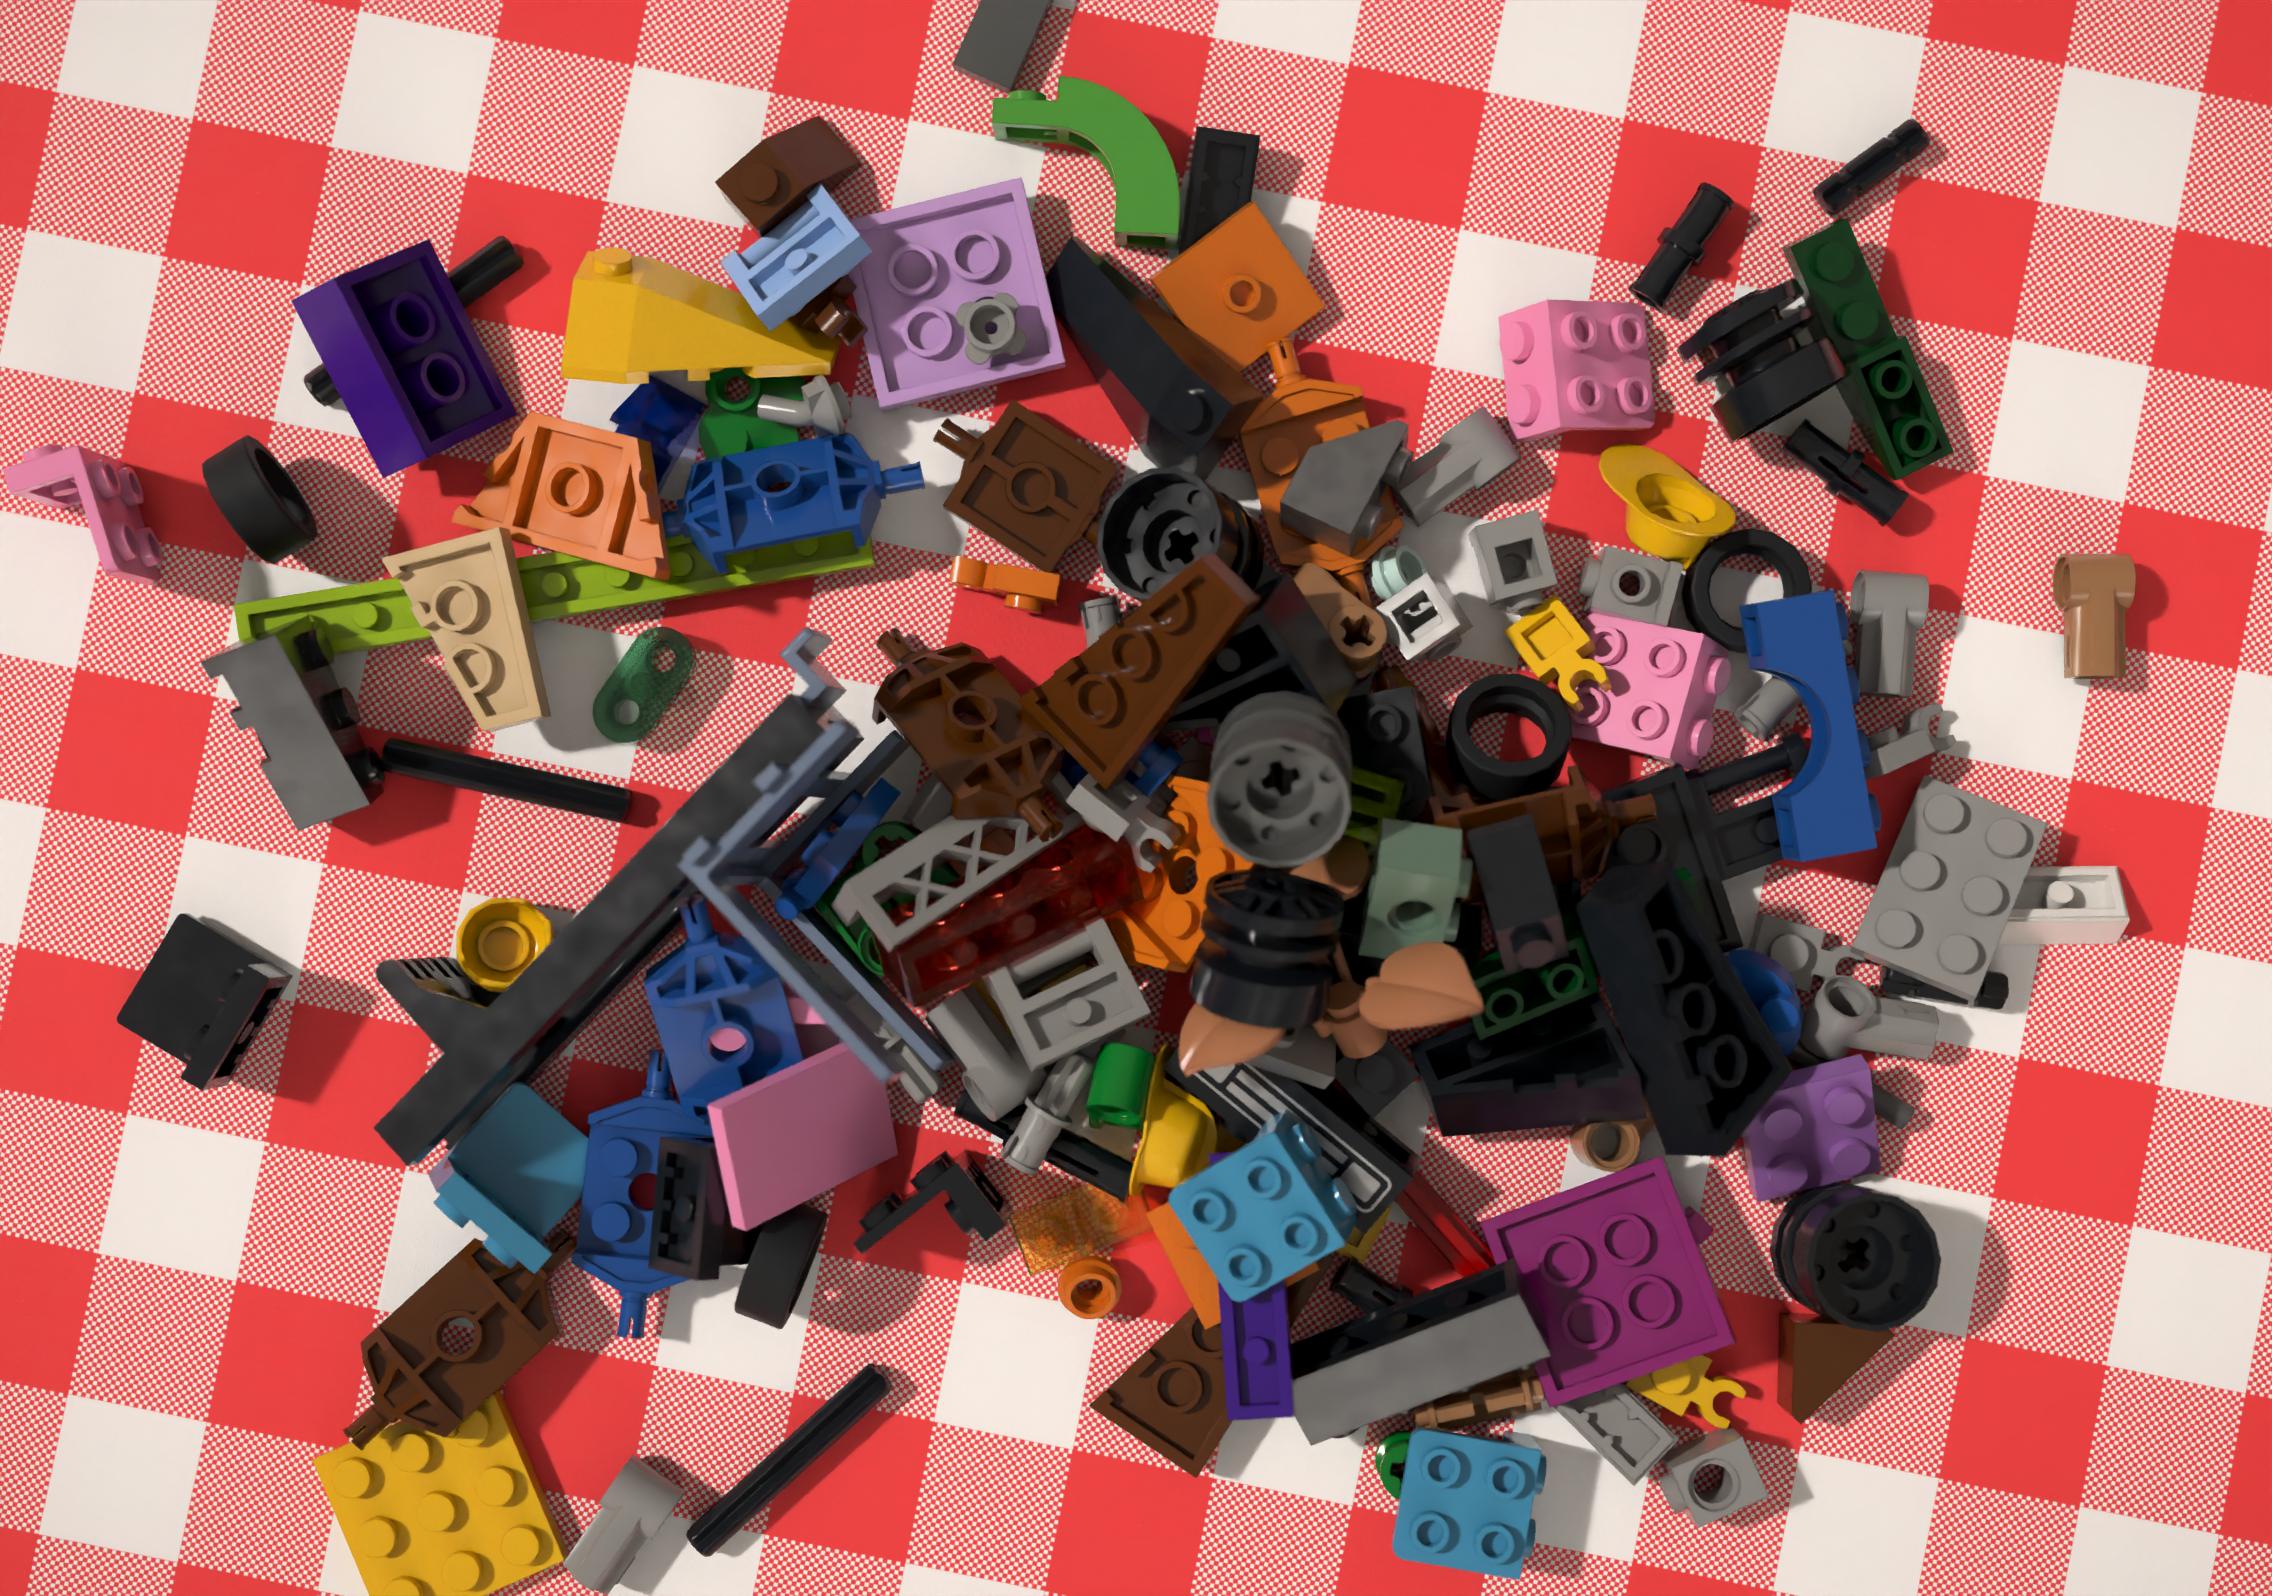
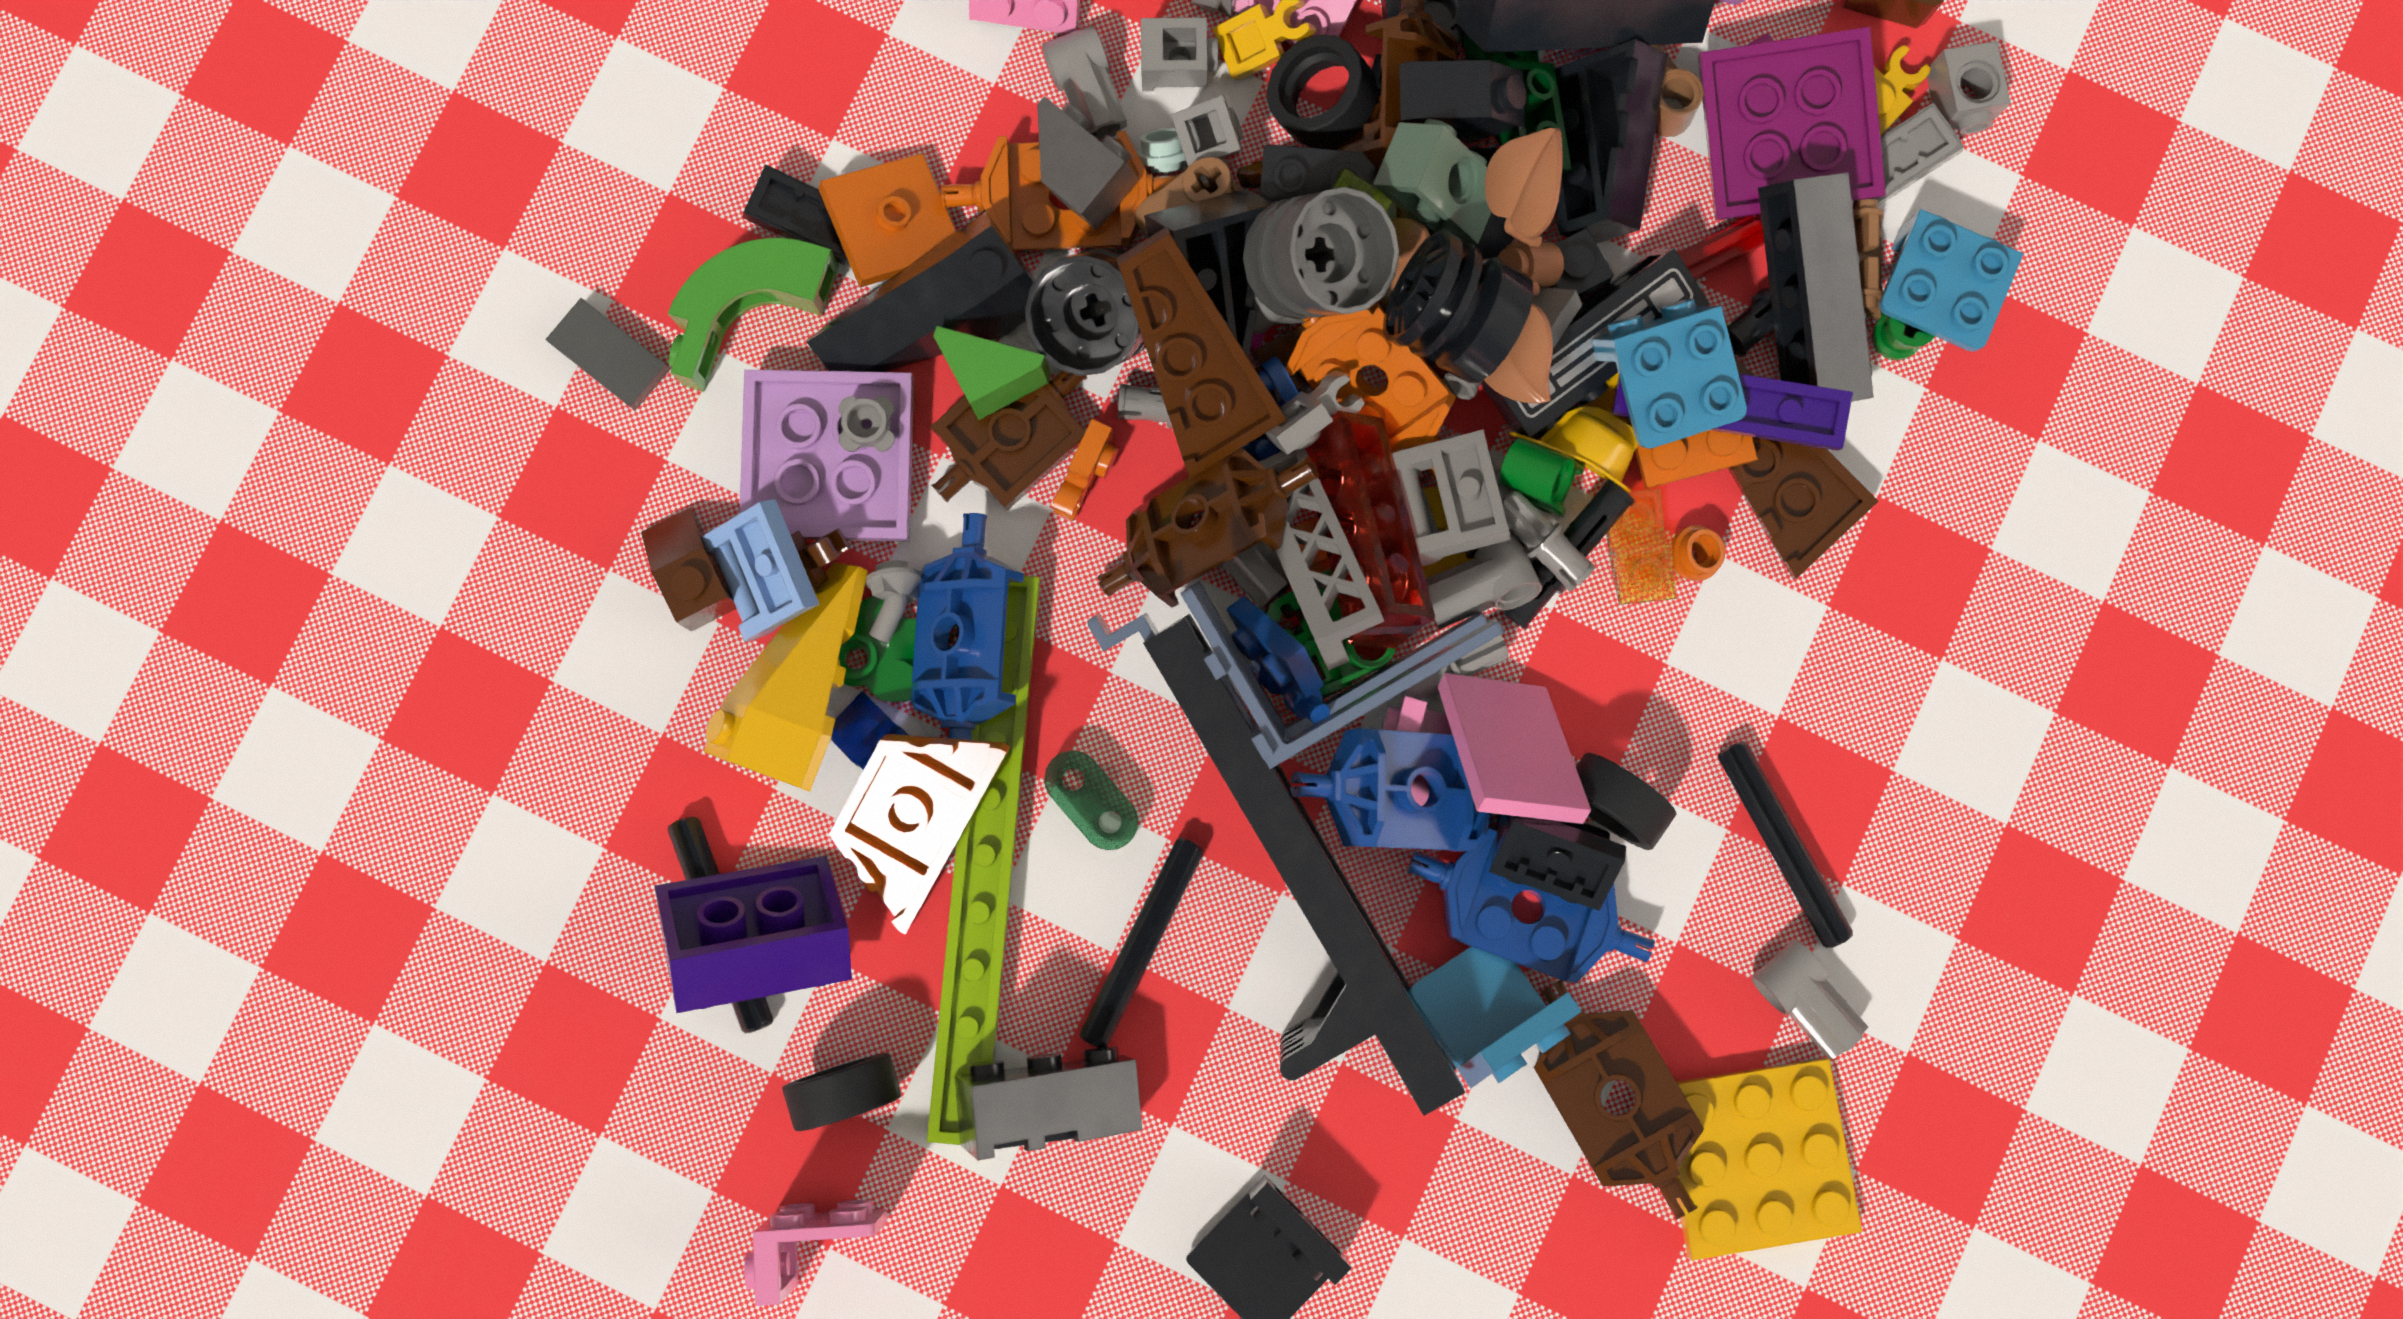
camera: 80 degrees left, 5 degrees down
(480, 621) = (1000, 924): tan wing -> none
(501, 941) = (1286, 974): yellow hair -> none
(972, 1202) = (1581, 653): black bracket -> none
(1078, 445) = (991, 371): none -> bright green slope

